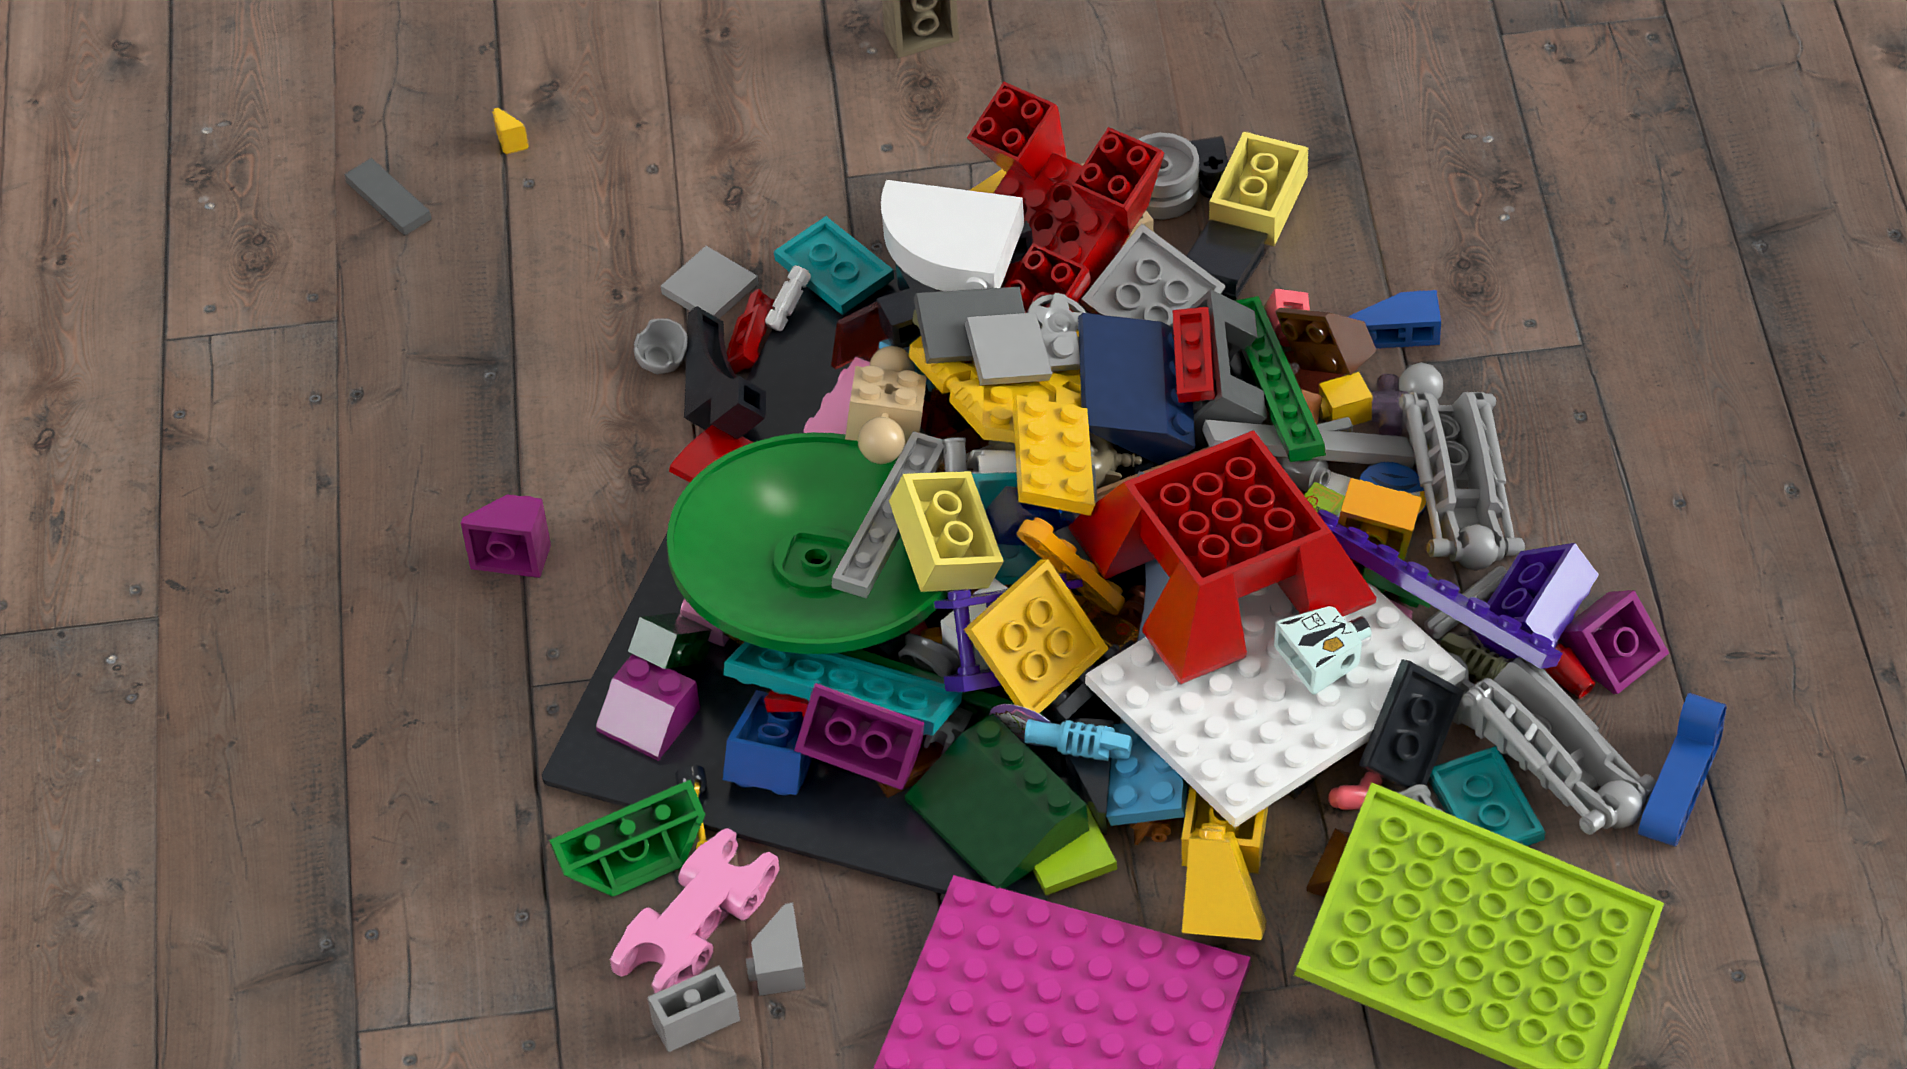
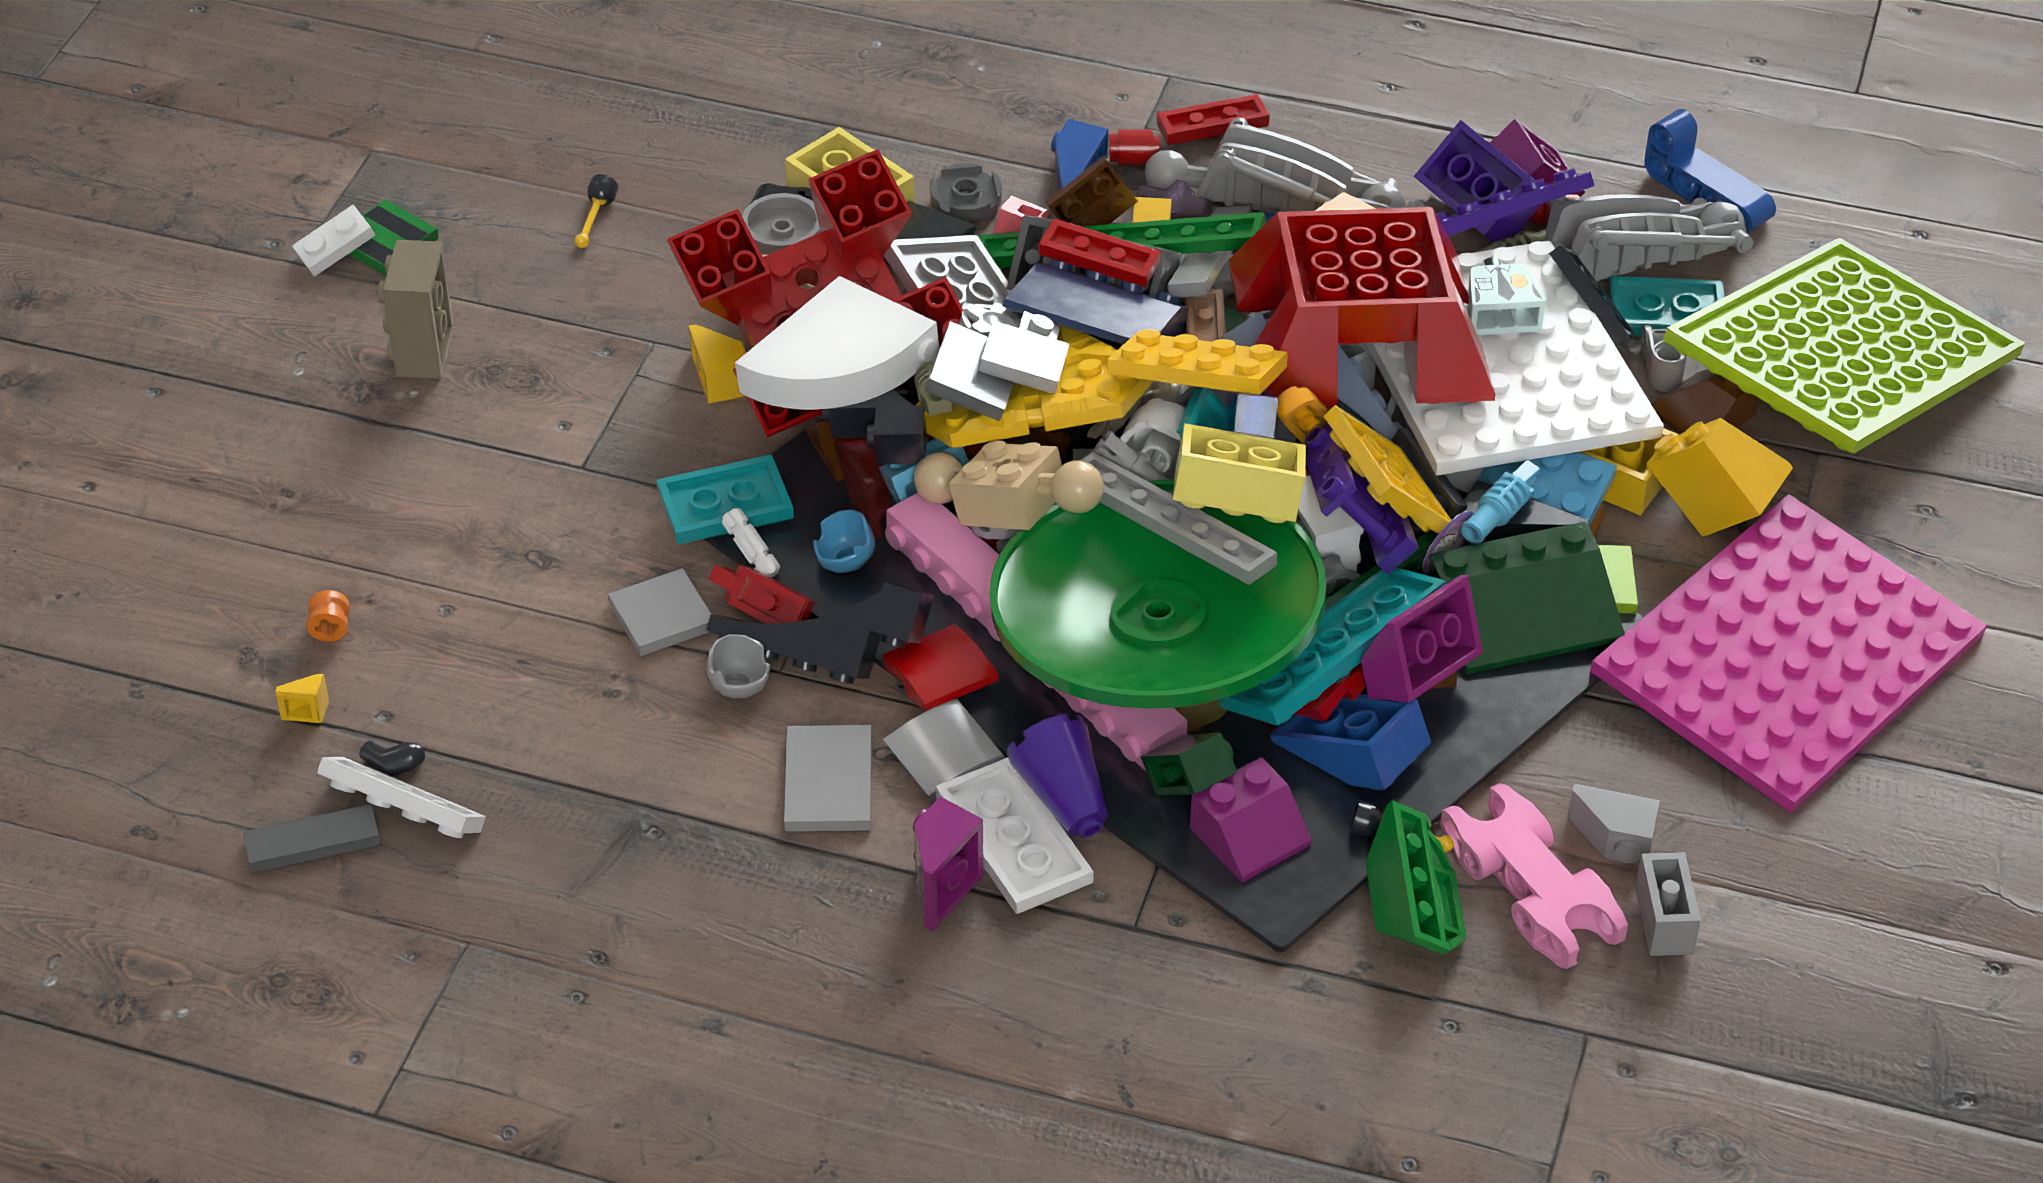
camera: 70 degrees left, 5 degrees down
(443, 222) = (388, 791): none -> white plate
(481, 204) = (393, 759): none -> black arm
(578, 575) = (1022, 840): none -> white plate
(587, 447) = (828, 778): none -> light grey tile
(597, 106) = (328, 615): none -> orange wheel
(628, 573) = (1062, 773): none -> dark purple cone
(642, 500) = (942, 746): none -> light grey slope
(814, 353) = (844, 542): none -> dark azure hair
(1160, 50) = (600, 192): none -> hinge
(1320, 282) = (979, 203): none -> dark grey plate
(1446, 351) = (1133, 146): none -> red brick
(1527, 392) = (1210, 119): none -> red plate

